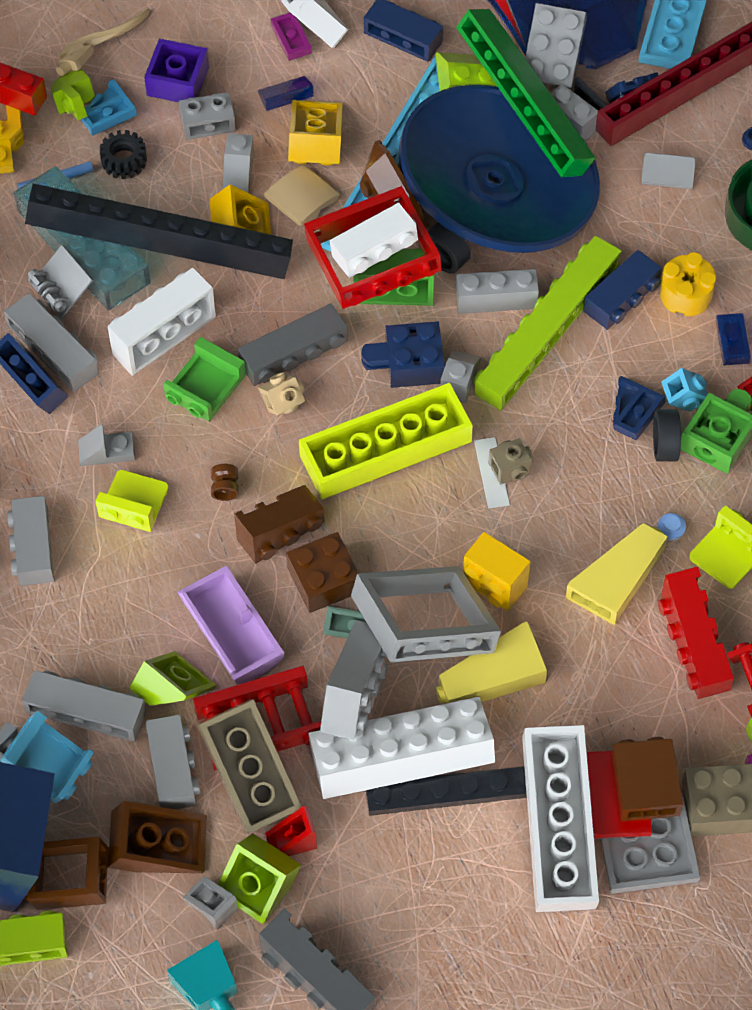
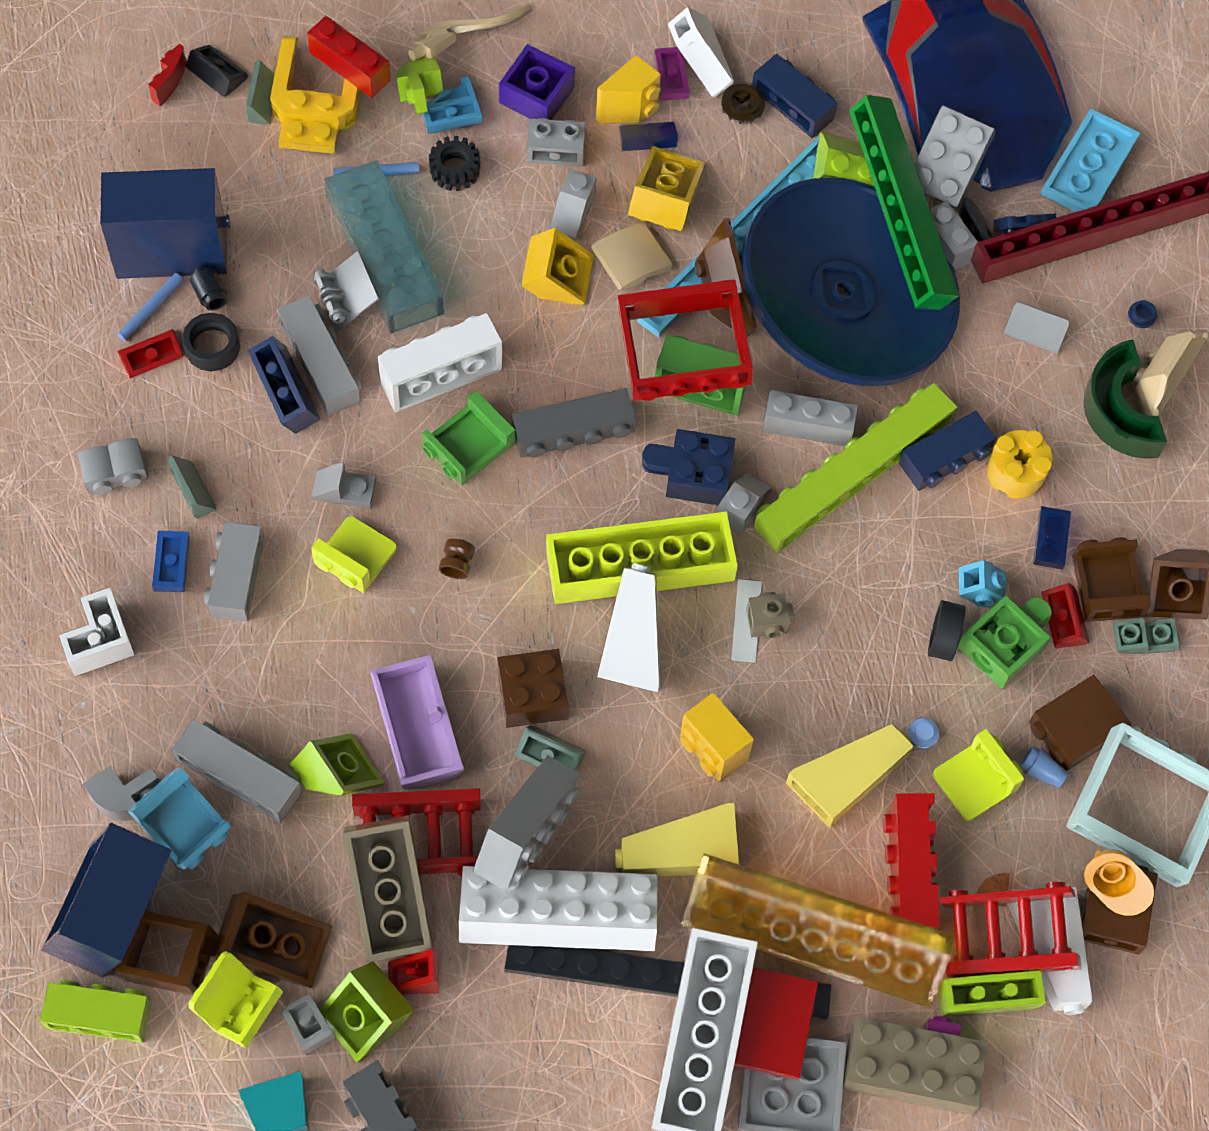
camera: 10 degrees right, 5 degrees up
(139, 897) = (234, 1000): none -> neon yellow bracket
(158, 231) = (463, 262): black brick -> none
(172, 762) = (311, 858): light grey brick -> none
(260, 60) = (629, 93): none -> yellow slope
(279, 523) = (501, 620): reddish brown wedge -> none
(282, 393) = (546, 476): tan brick -> none
(354, 40) = (741, 94): none -> dark brown gear
(374, 240) = (686, 335): white brick -> none
(399, 505) = (633, 635): none -> white slope
(429, 642) = (620, 805): light grey window -> none
(452, 248) = (769, 359): black tyre -> none
(634, 705) = (819, 930): none -> clear yellow brick
(635, 407) = (922, 588): dark blue wing -> none
(646, 779) = (810, 1018): reddish brown brick -> none

